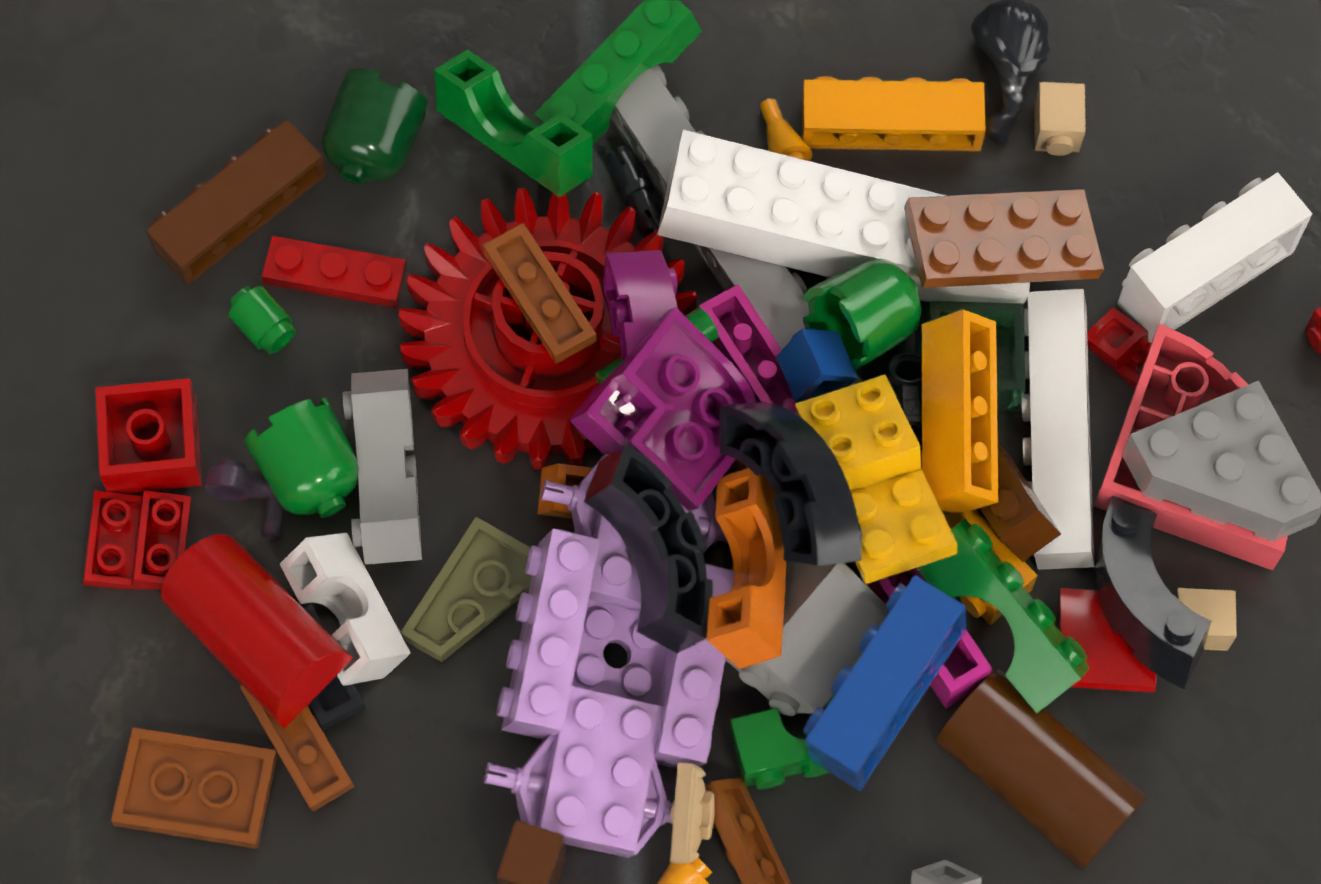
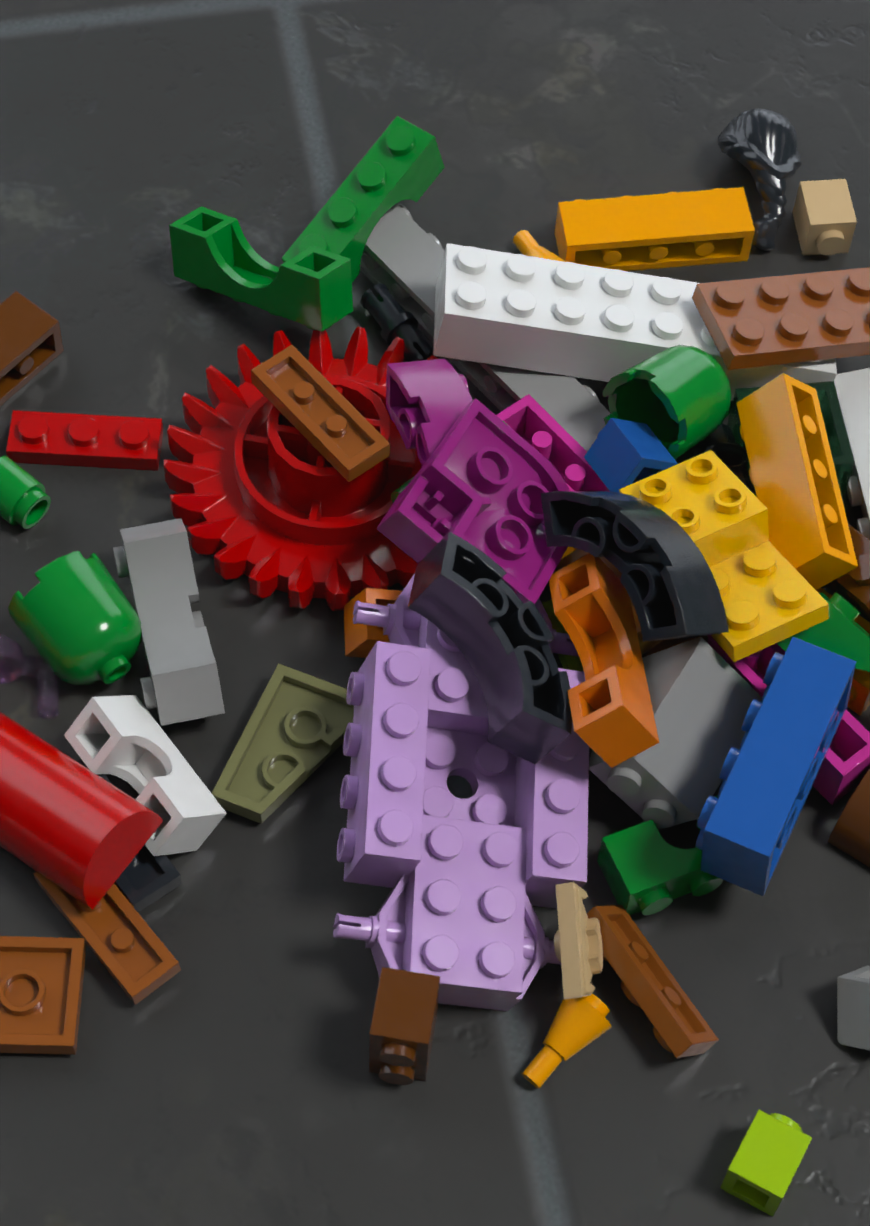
camera: 10 degrees left, 10 degrees down
(372, 126) = (109, 287): dark green cylinder -> none

